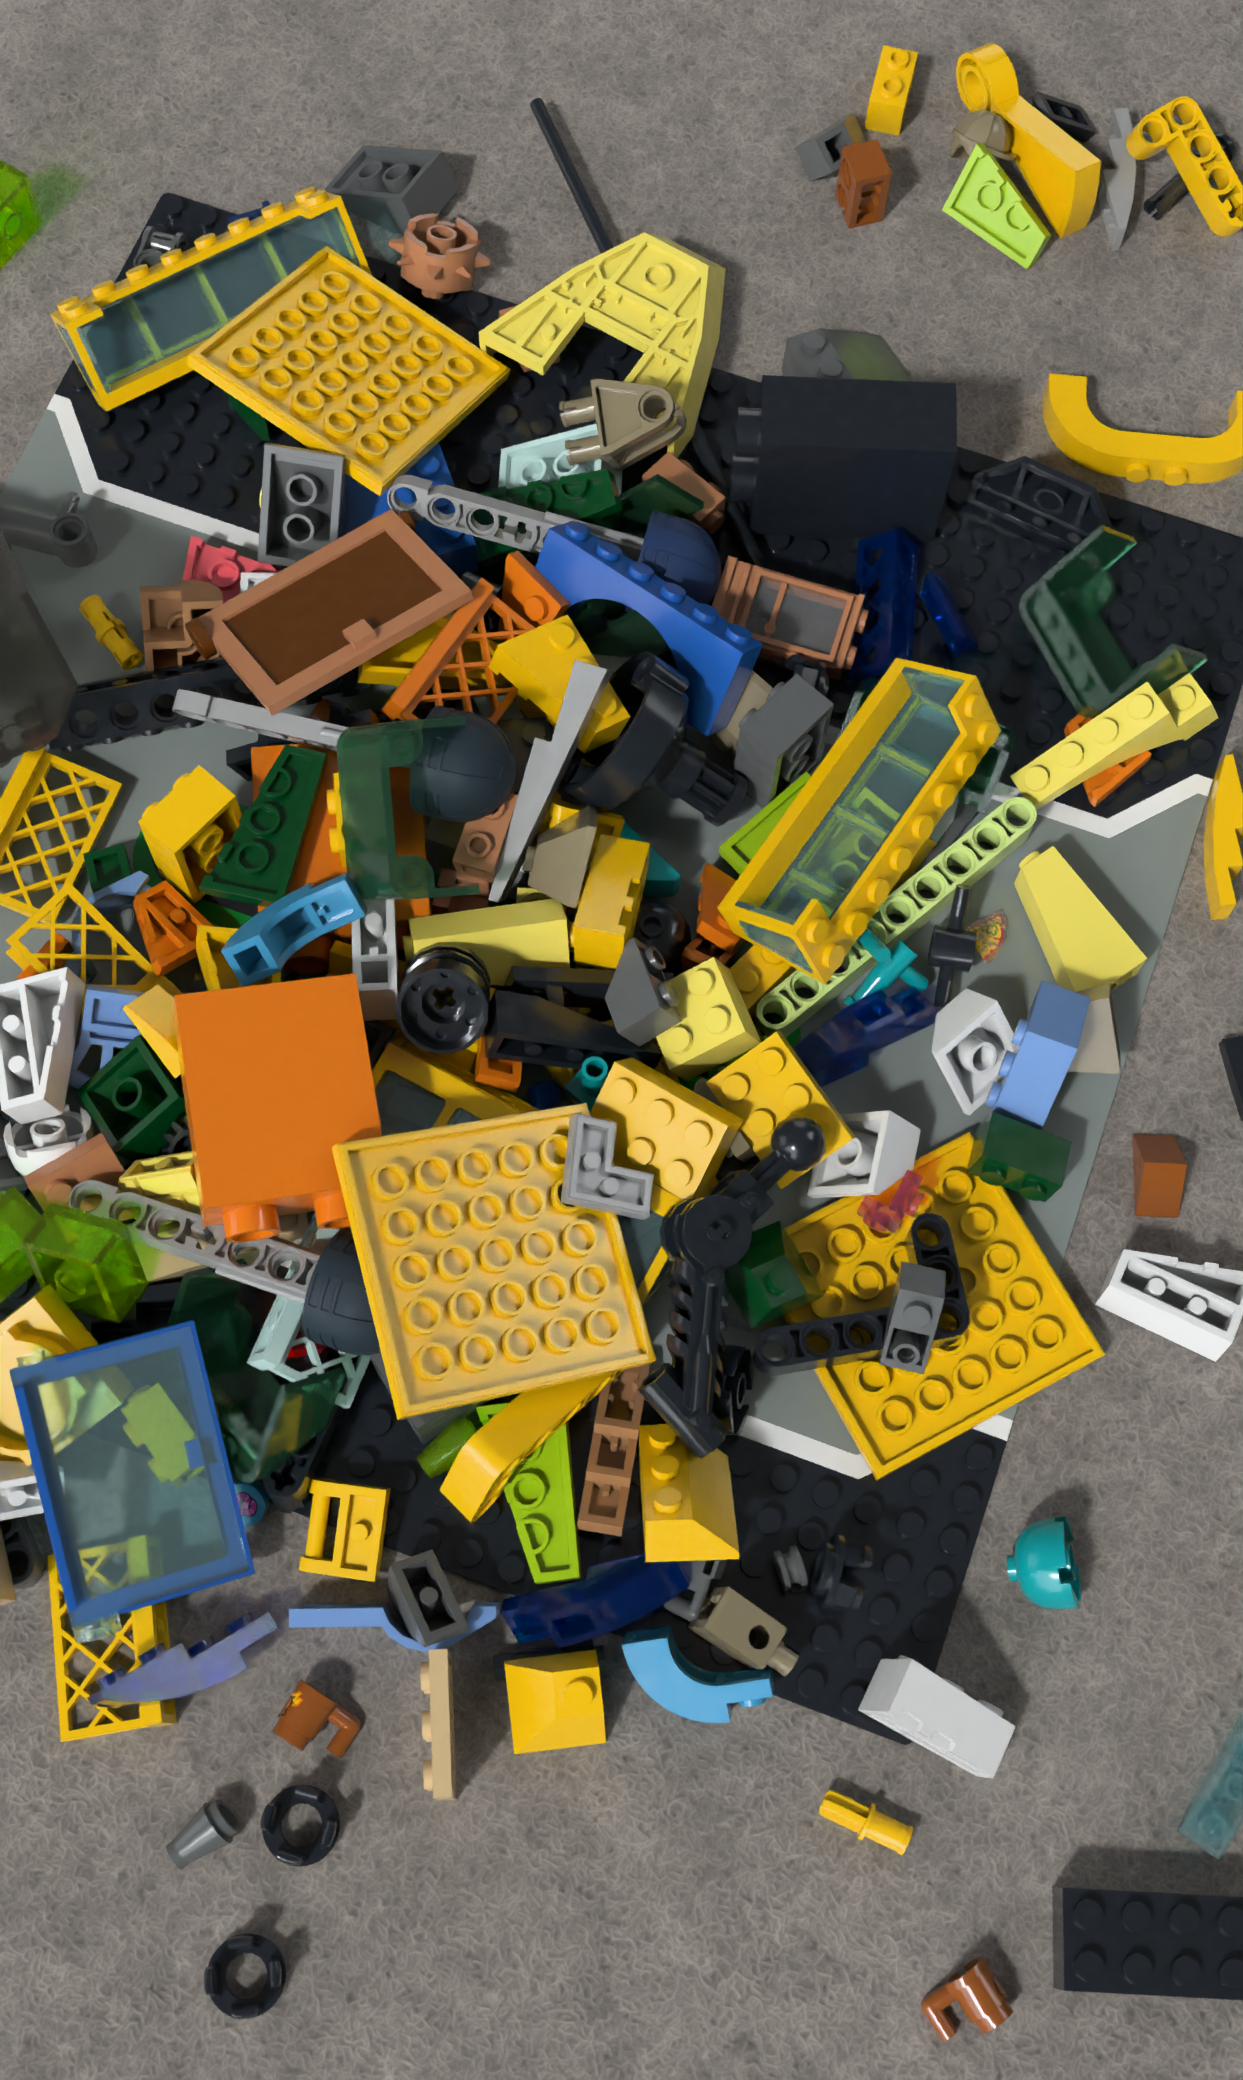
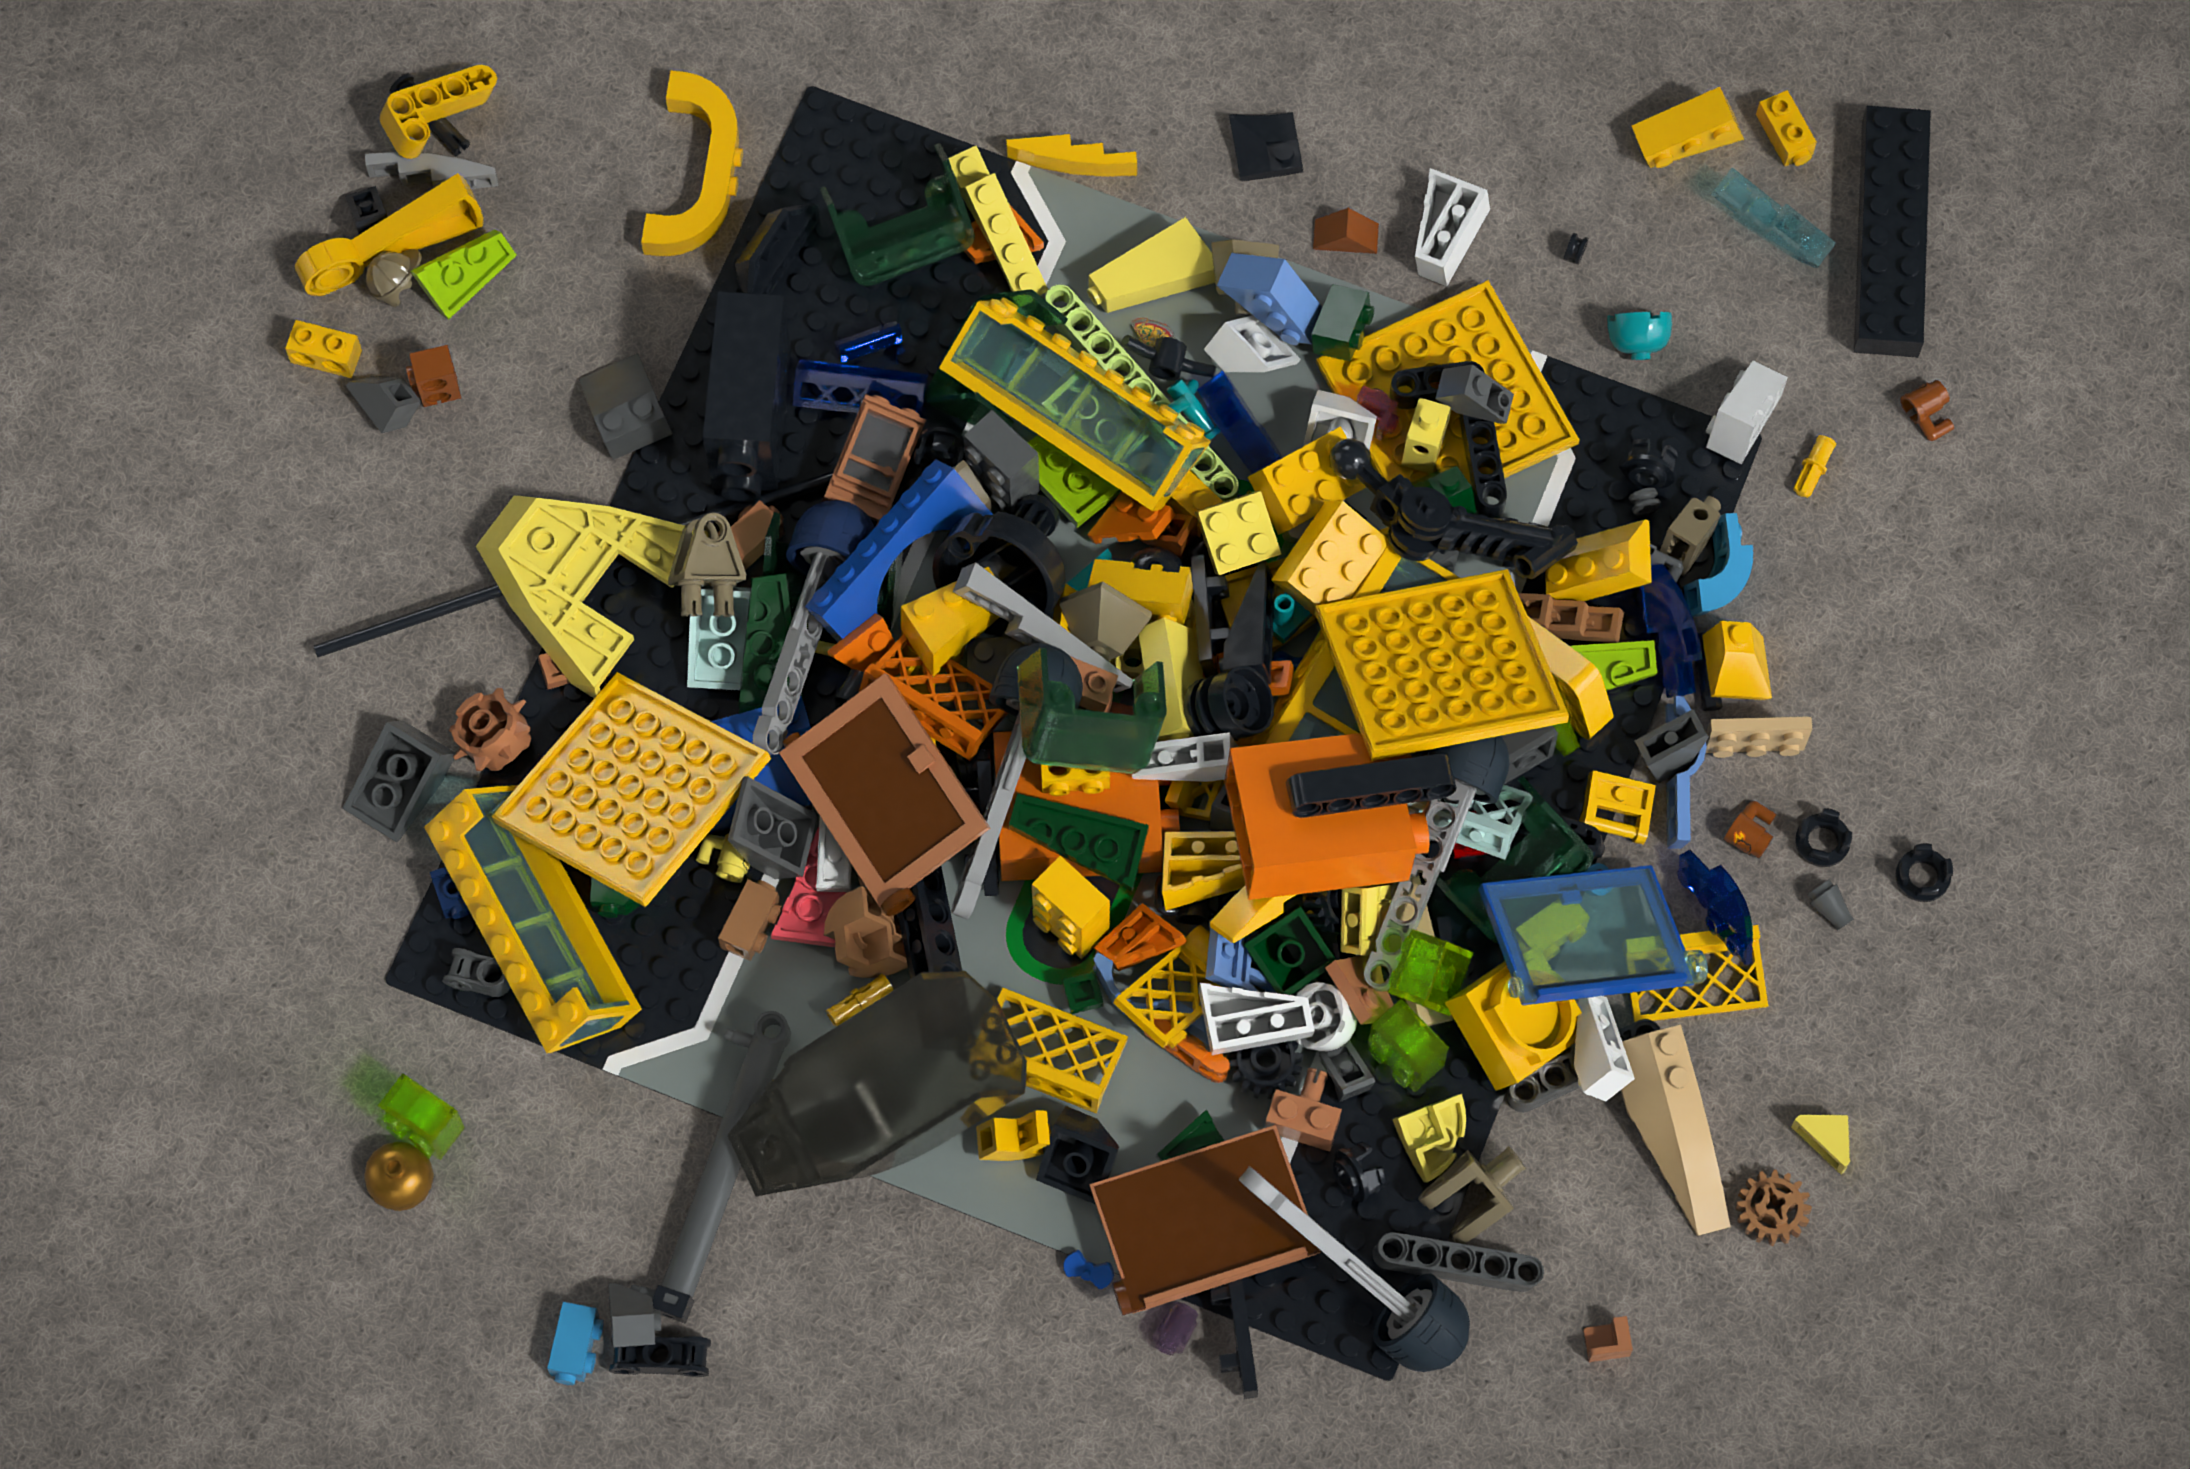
camera: 85 degrees left, 0 degrees up
(211, 515) = (749, 920): none -> medium nougat brick
(290, 923) = (1168, 817): dark azure arch -> none
(291, 1146) = (1371, 785): none -> black beam
(591, 1177) = (1377, 600): light grey tile -> none
(640, 995) = (1226, 567): dark grey slope -> none
(860, 1262) = (1426, 430): none -> light yellow torso
(1169, 1477) = (1576, 248): none -> black bush

